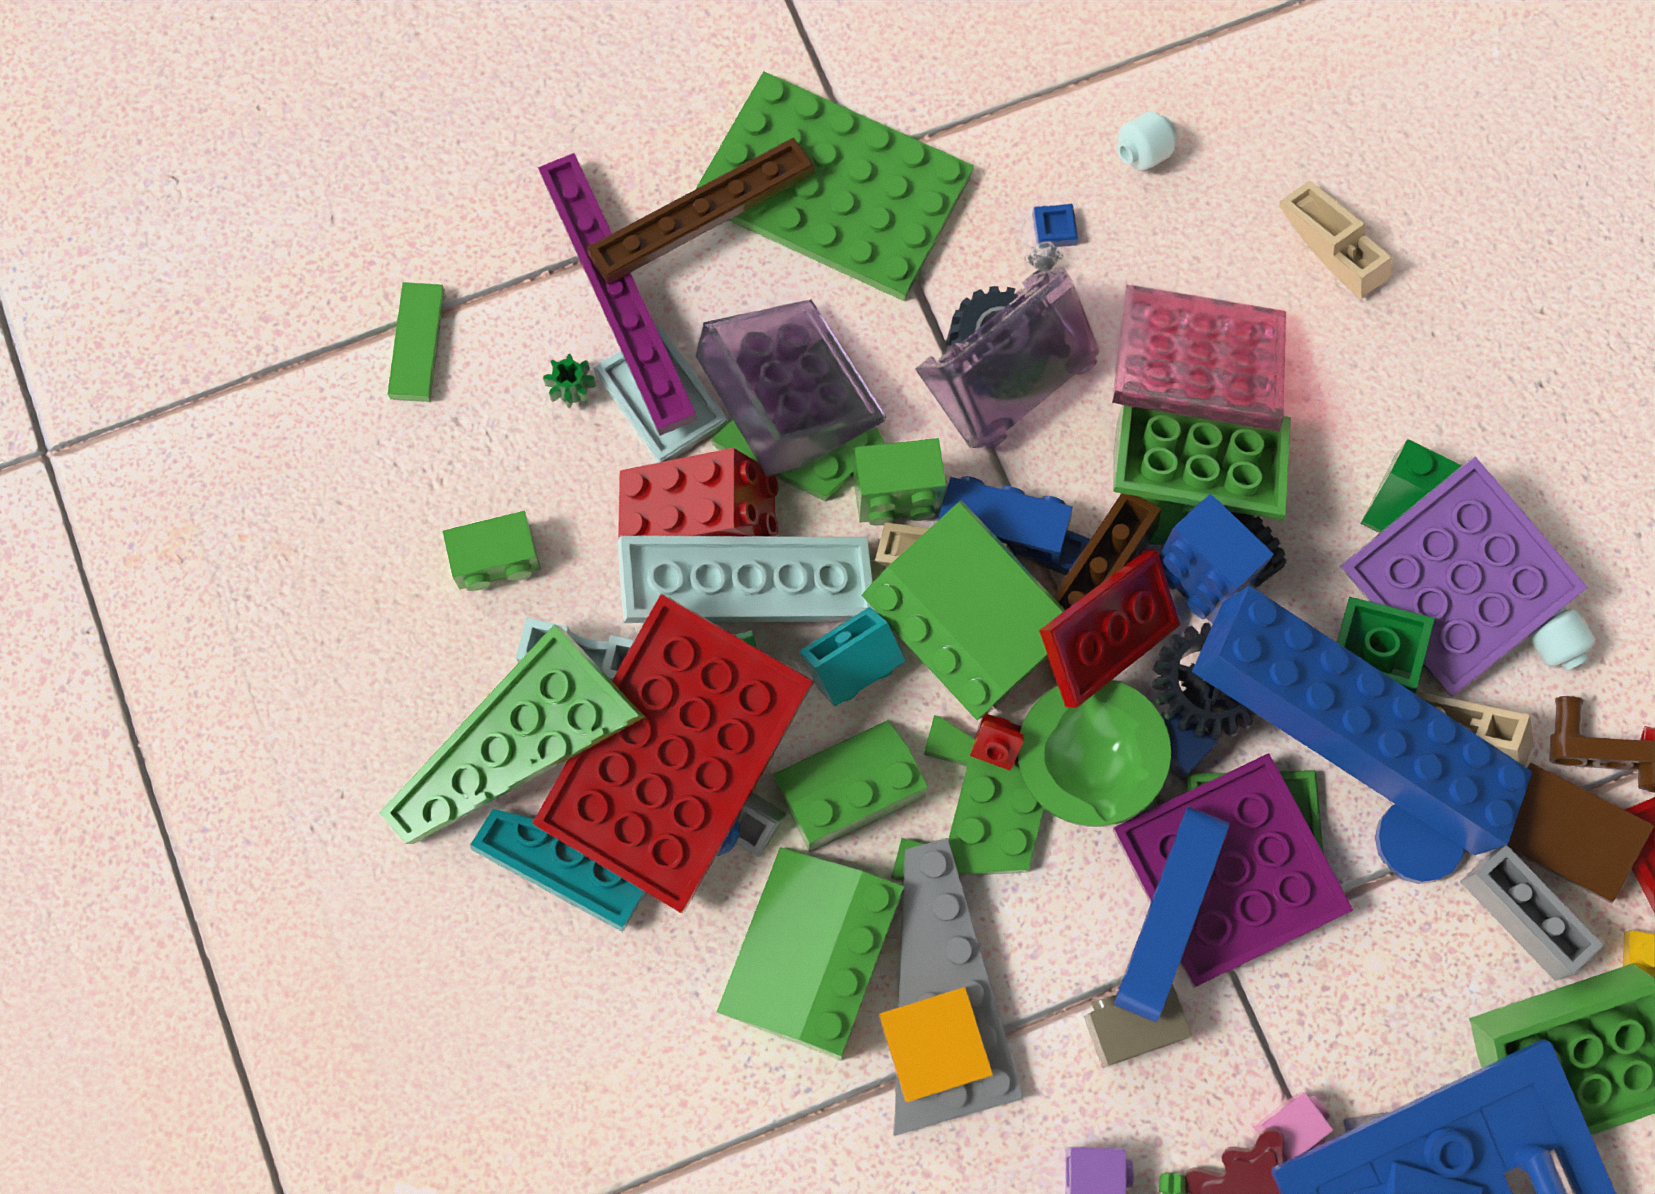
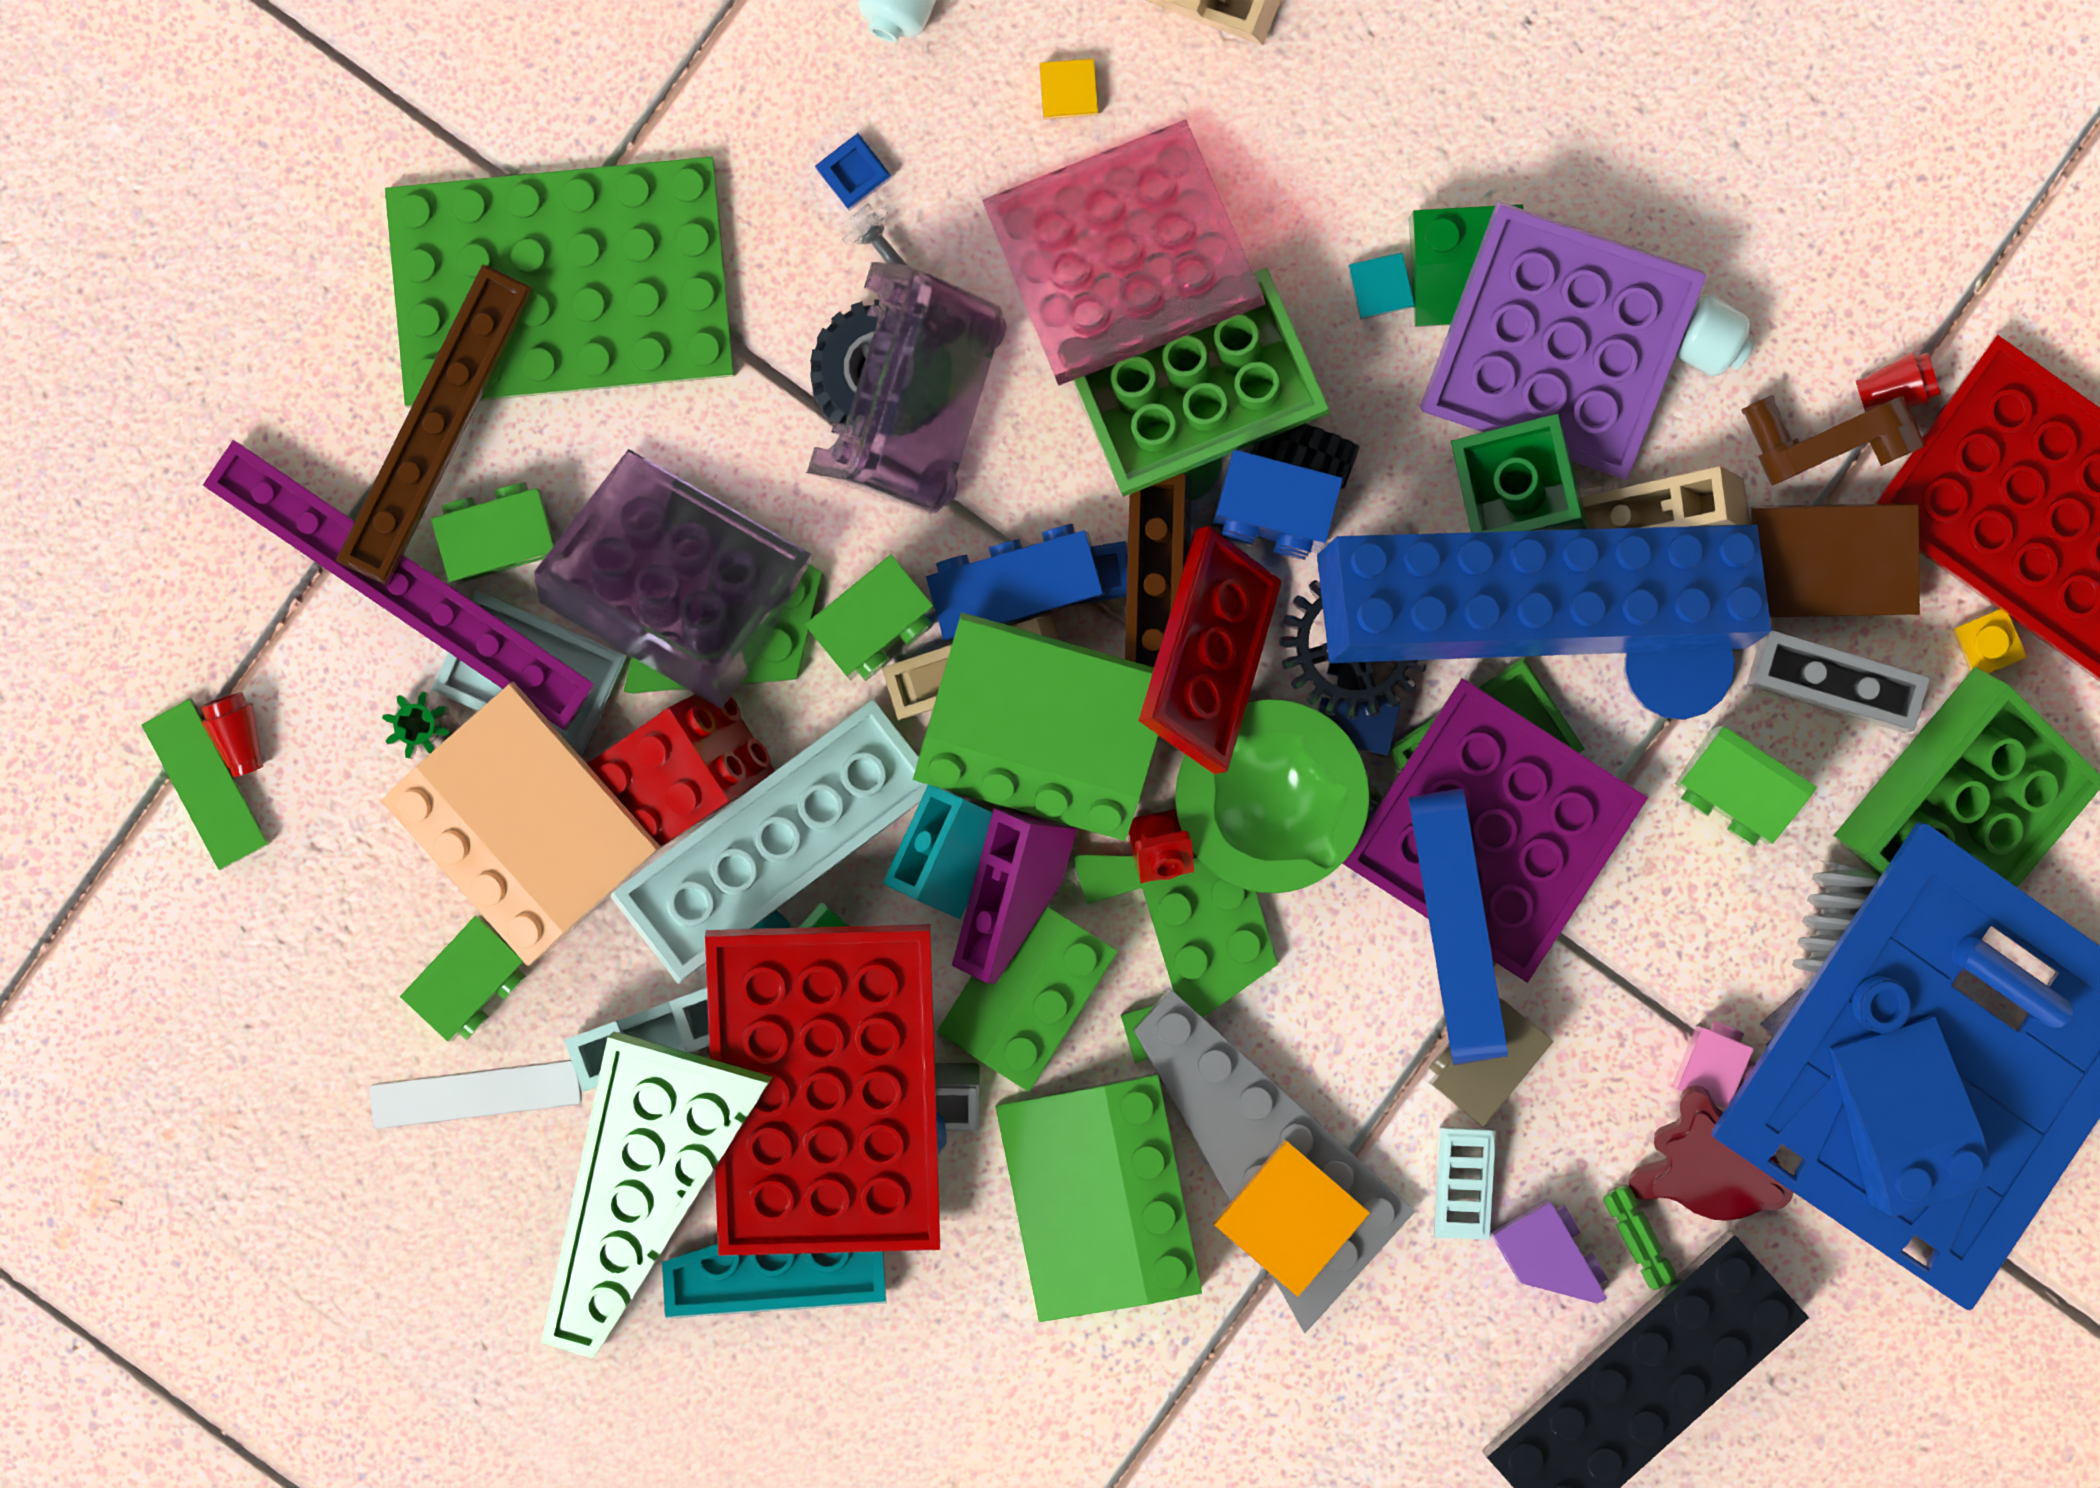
camera: 30 degrees left, 15 degrees up
(446, 630) = (474, 1095): none -> white sticker
(455, 318) = (234, 733): none -> red cone
(590, 471) = (520, 824): none -> light nougat slope
(691, 296) = (493, 534): none -> bright green brick
(887, 703) = (1012, 886): none -> magenta slope
(1092, 1094) = (1464, 1137): none -> light aqua slope
(1220, 255) = (1068, 89): none -> yellow tile
(1353, 483) = (1381, 286): none -> teal tile
(1427, 942) = (1743, 787): none -> bright green slope
(1444, 1065) = (1838, 906): none -> light grey piece

